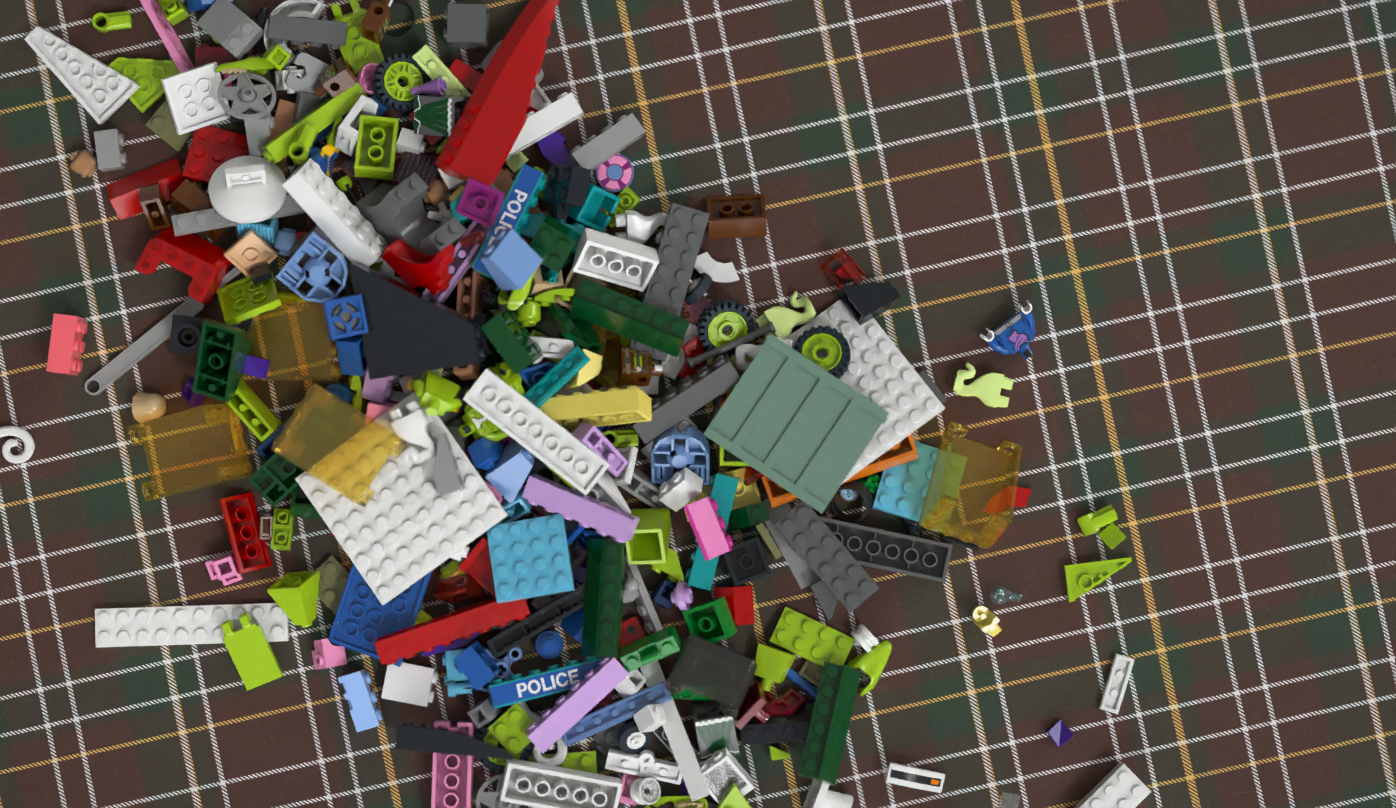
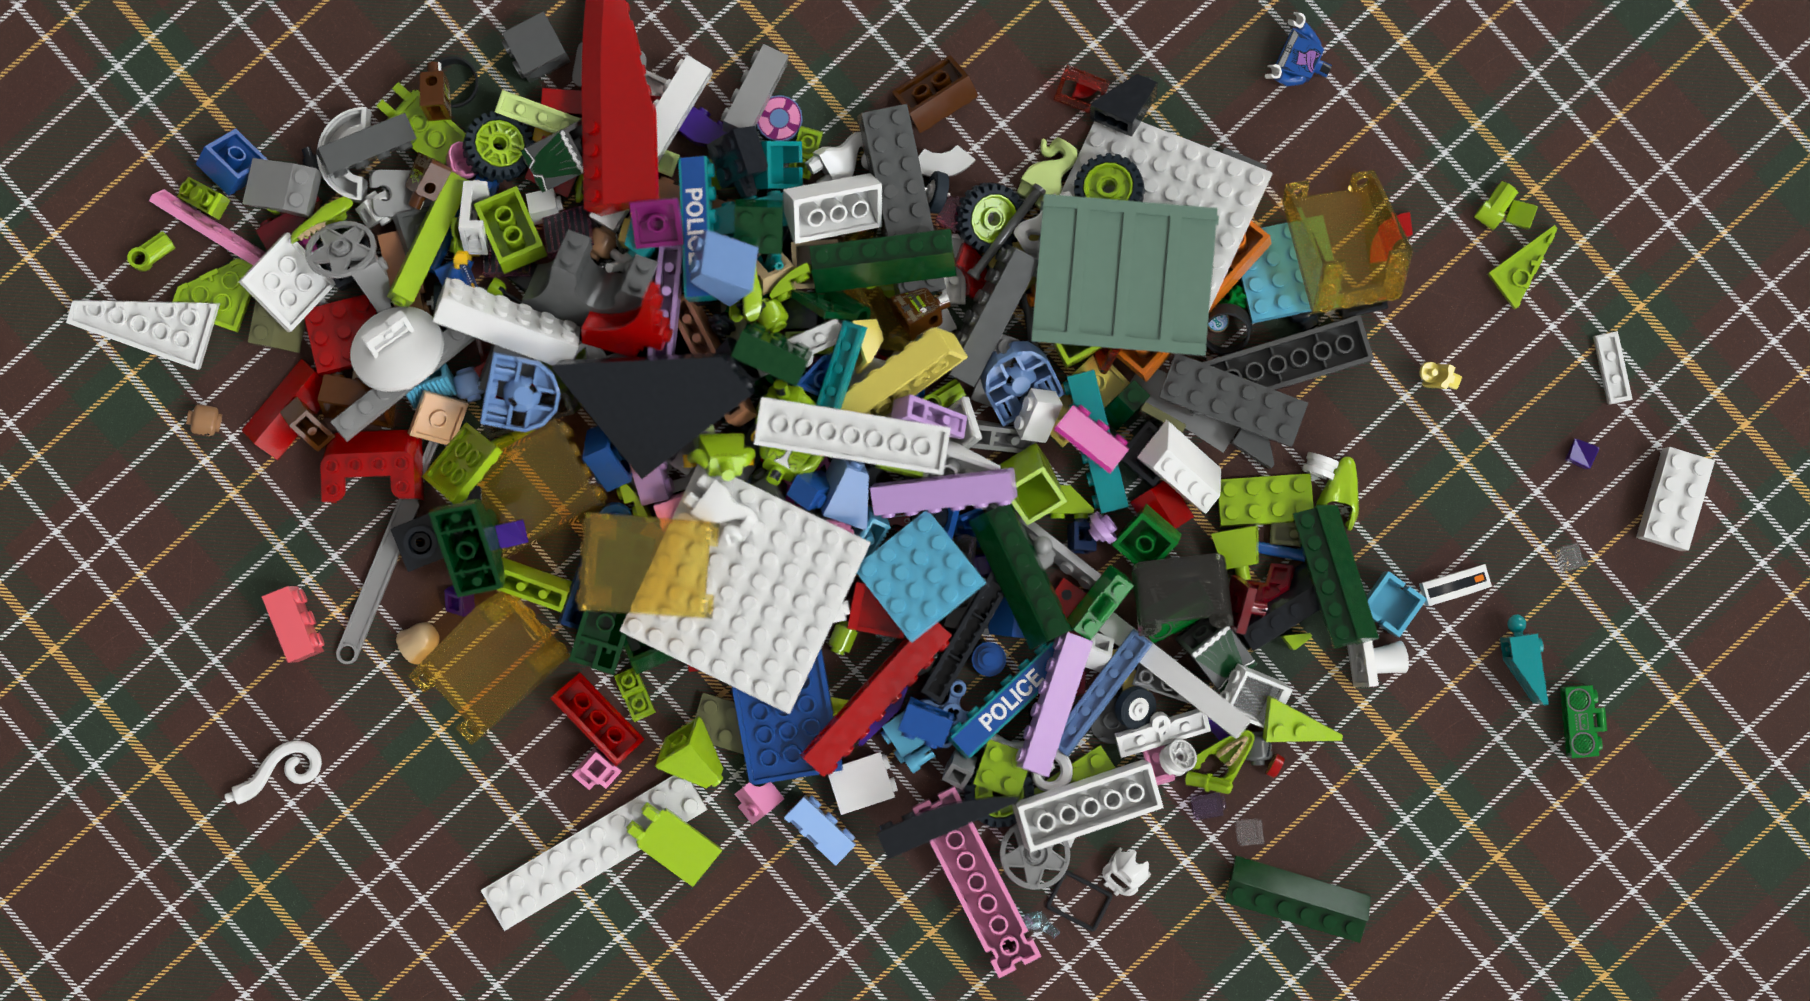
camera: 30 degrees left, 0 degrees up
(110, 150) = (224, 390): light grey brick -> none
(260, 273) = (460, 432): black tile -> none
(265, 525) = (614, 700): reddish brown piece -> none
(276, 56) = (348, 190): lime slope -> none
(302, 143) = (429, 266): lime piece -> none
(344, 317) = (577, 426): blue piece -> none
(434, 87) = (537, 130): medium lavender cone -> none
(446, 472) = (779, 530): light grey slope -> none
(450, 588) = (863, 642): clear red tile -> none
(476, 237) = (672, 264): clear red arm -> none
(650, 718) = (1141, 676): white brick -> none
(764, 584) = (1183, 467): none -> white slope
(861, 766) = (1393, 605): none -> medium azure piece
(985, 387) = (1301, 130): yellowish green hips -> none
(1002, 595) = (1441, 340): clear light blue animal -> none

